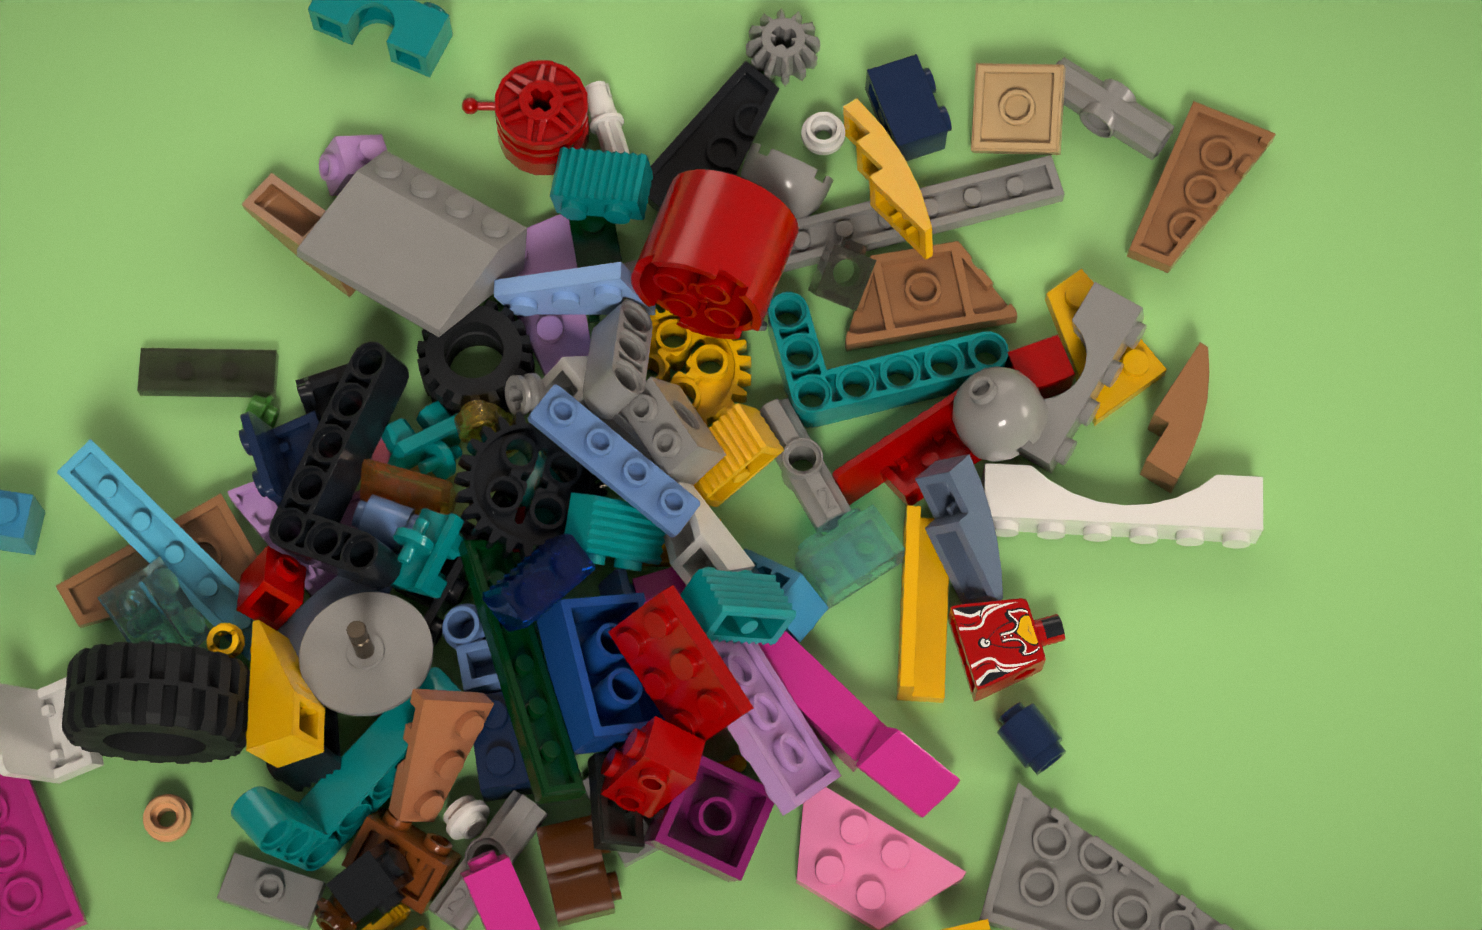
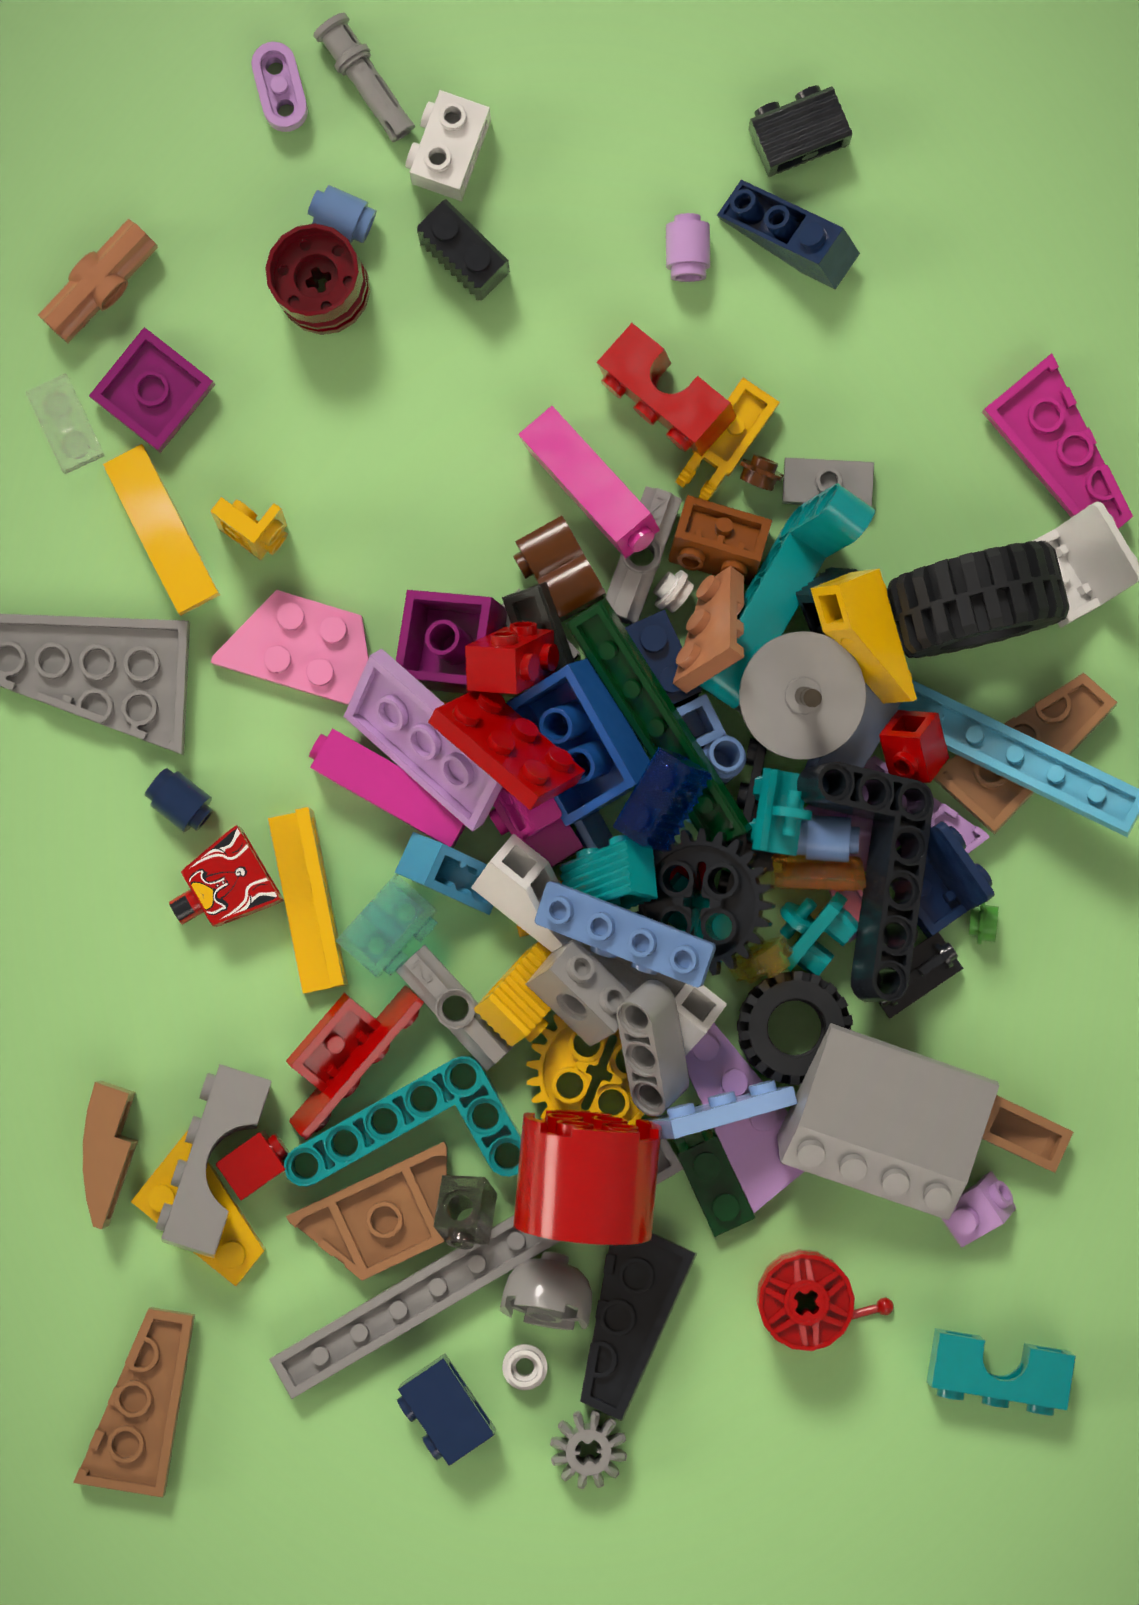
camera: 170 degrees right, 15 degrees up
(154, 608) = (1013, 692): clear light blue brick -> none
(161, 805) = (949, 510): light nougat plate -> none
(207, 372) = (1049, 955): clear smoke tile -> none
(217, 632) = (936, 677): yellow pin -> none
(372, 882) = (737, 503): black brick -> none
(524, 392) = (732, 993): light grey bush -> none
(601, 185) = (725, 1237): teal brick -> none
(605, 120) = (742, 1318): white axle -> none
(738, 606) = (472, 828): teal brick -> none
(891, 182) = (436, 1312): yellow slope -> none
(906, 770) = (285, 734): dark pink slope -> none
(963, 529) = (286, 978): sand blue slope -> none
(998, 413) = (276, 1097): light grey cylinder -> none
(1018, 108) = (335, 1440): tan tile -> none
(1112, 110) = (246, 1468): light grey piece -> none
(1218, 511) = (53, 1068): white arch -> none

